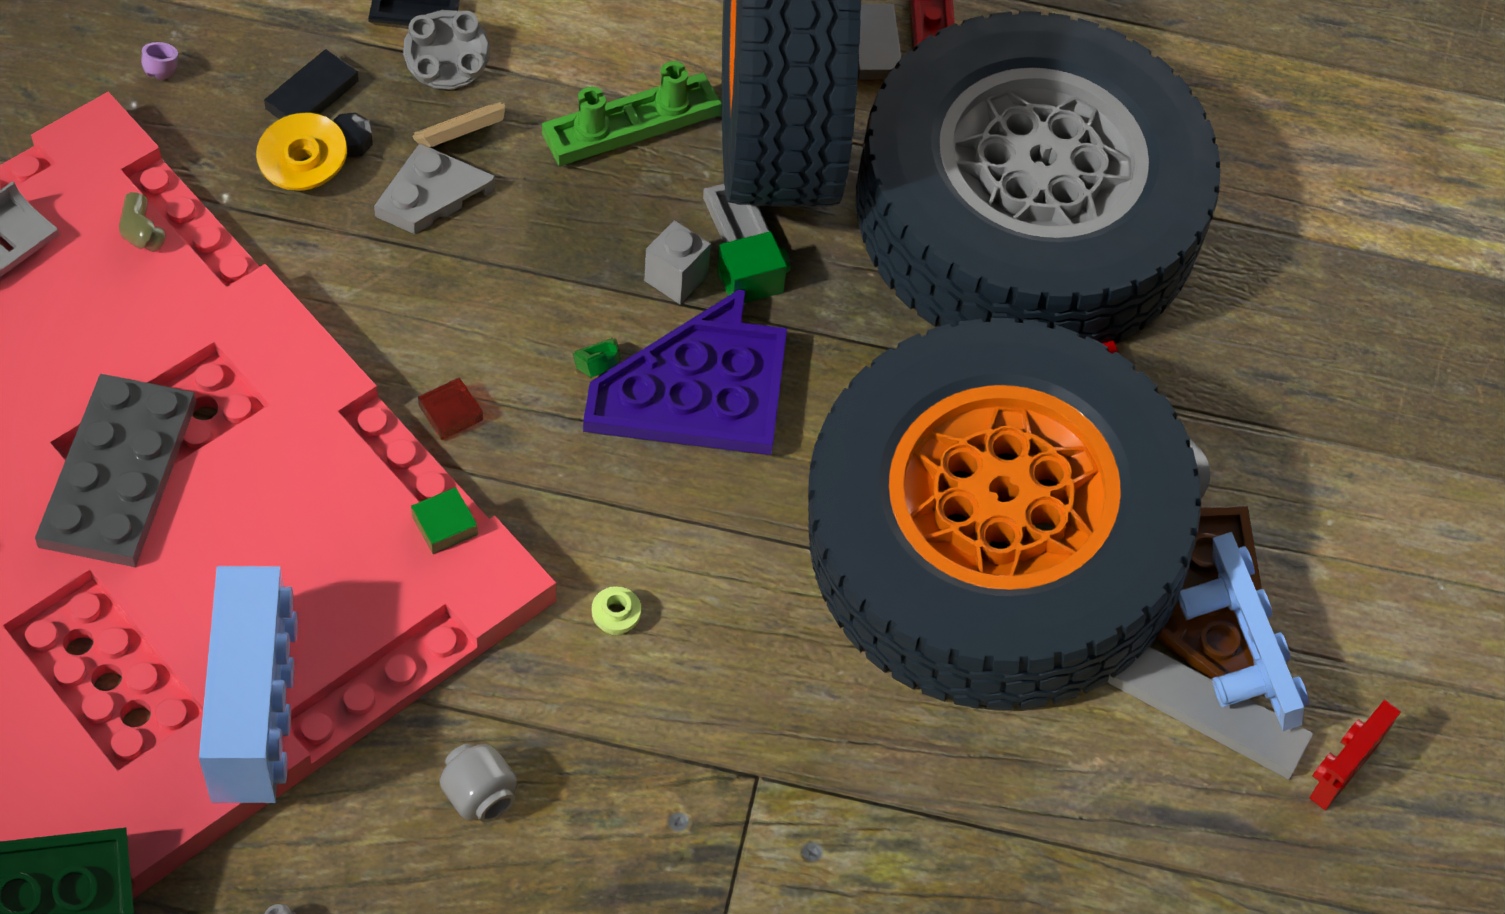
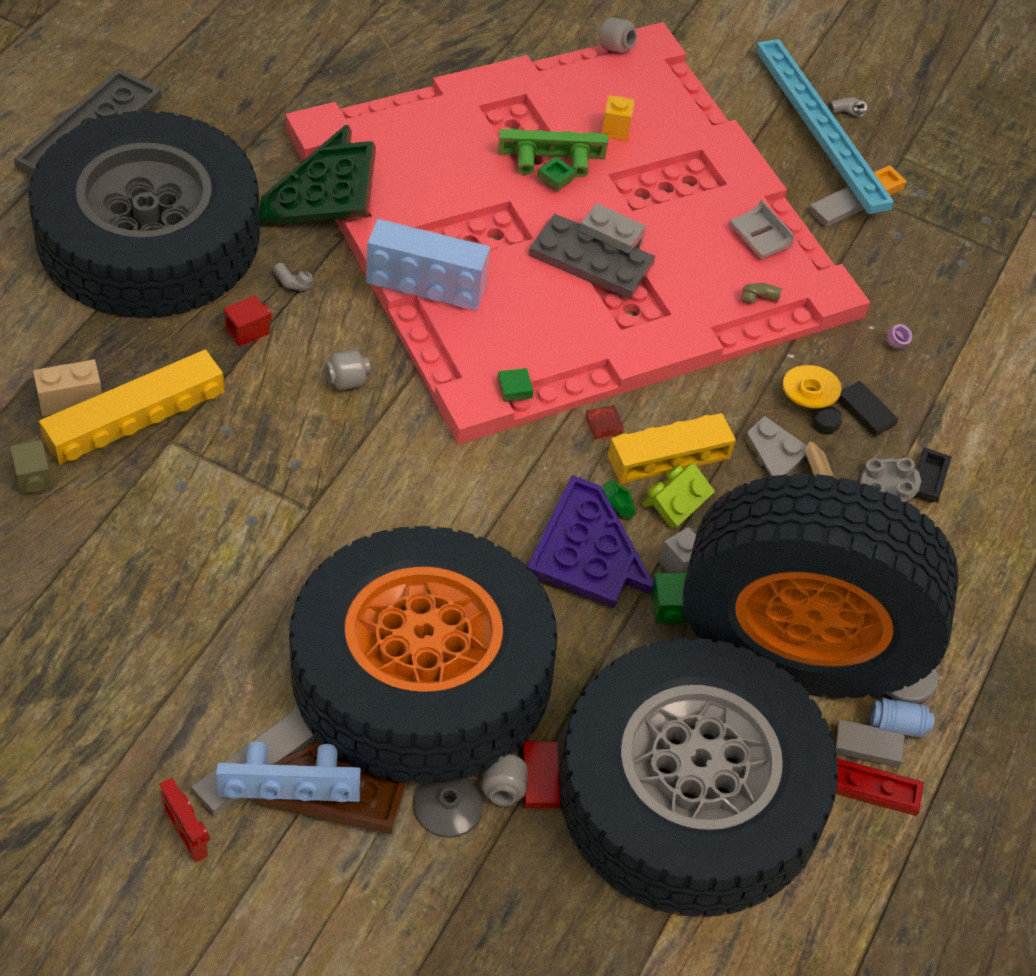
camera: 105 degrees right, 5 degrees down
(64, 434) = (613, 228): none -> light grey bracket
(481, 309) = (661, 448): none -> yellow brick
(560, 292) = (679, 494): none -> lime bracket
(616, 622) = (435, 470): yellowish green plate -> none

